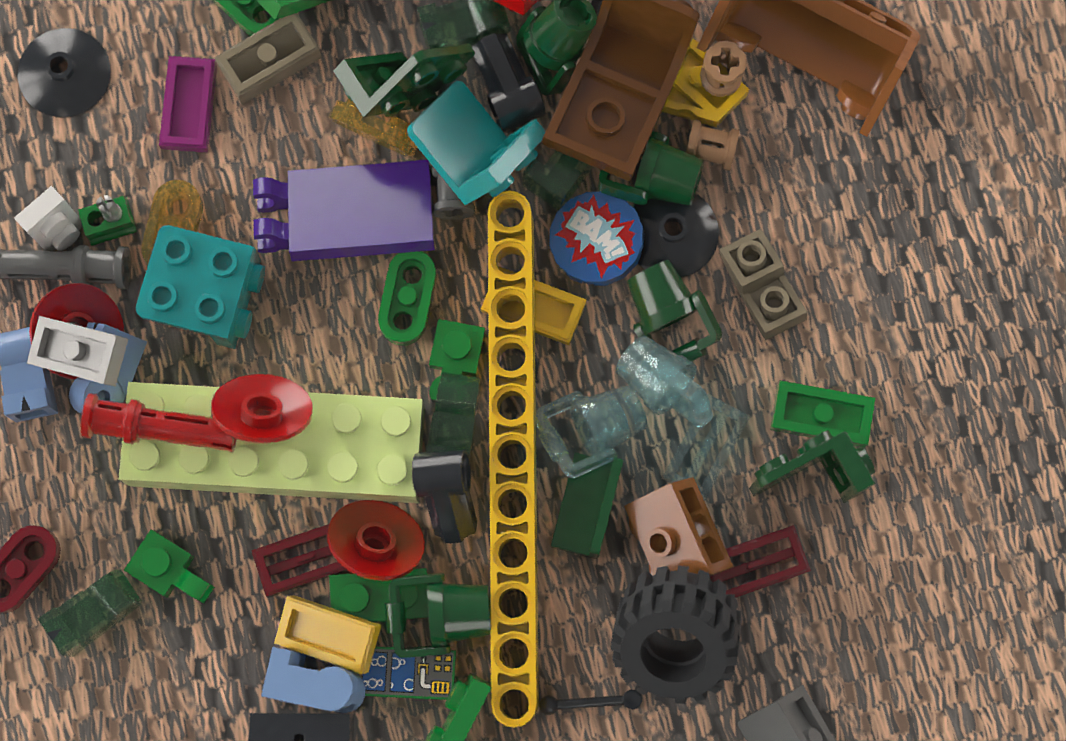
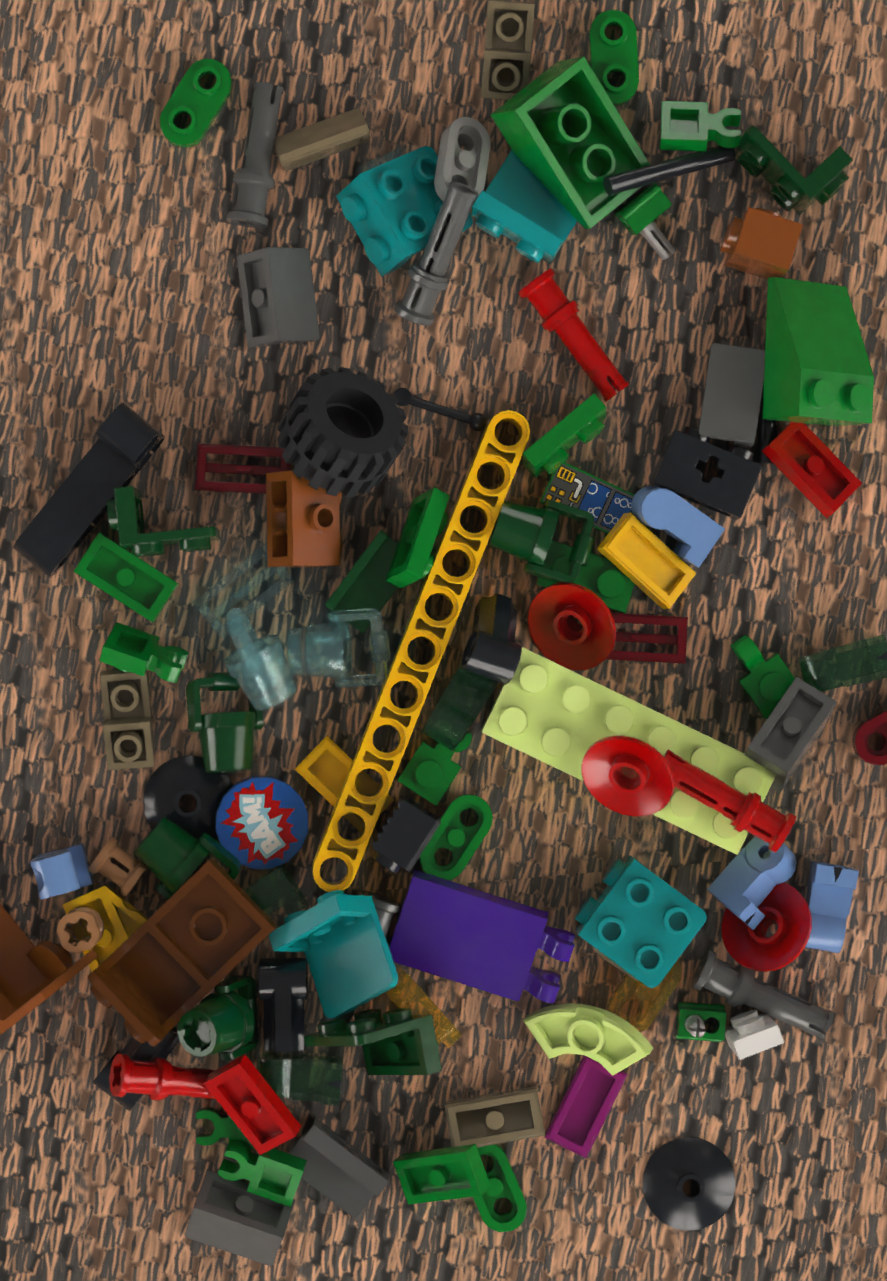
camera: 155 degrees left, 10 degrees up
(77, 351) = (772, 898): plate -> none
(121, 523) = (791, 731): none -> dark grey panel
(209, 166) = (588, 1032): none -> yellowish green tile
(456, 275) = (404, 835): none -> black brick
(560, 577) = (422, 527): none -> green plate
(763, 117) = (61, 871): none -> medium blue leg
(780, 349) = (139, 651): none -> green plate
(884, 519) = (83, 496): none -> black beam

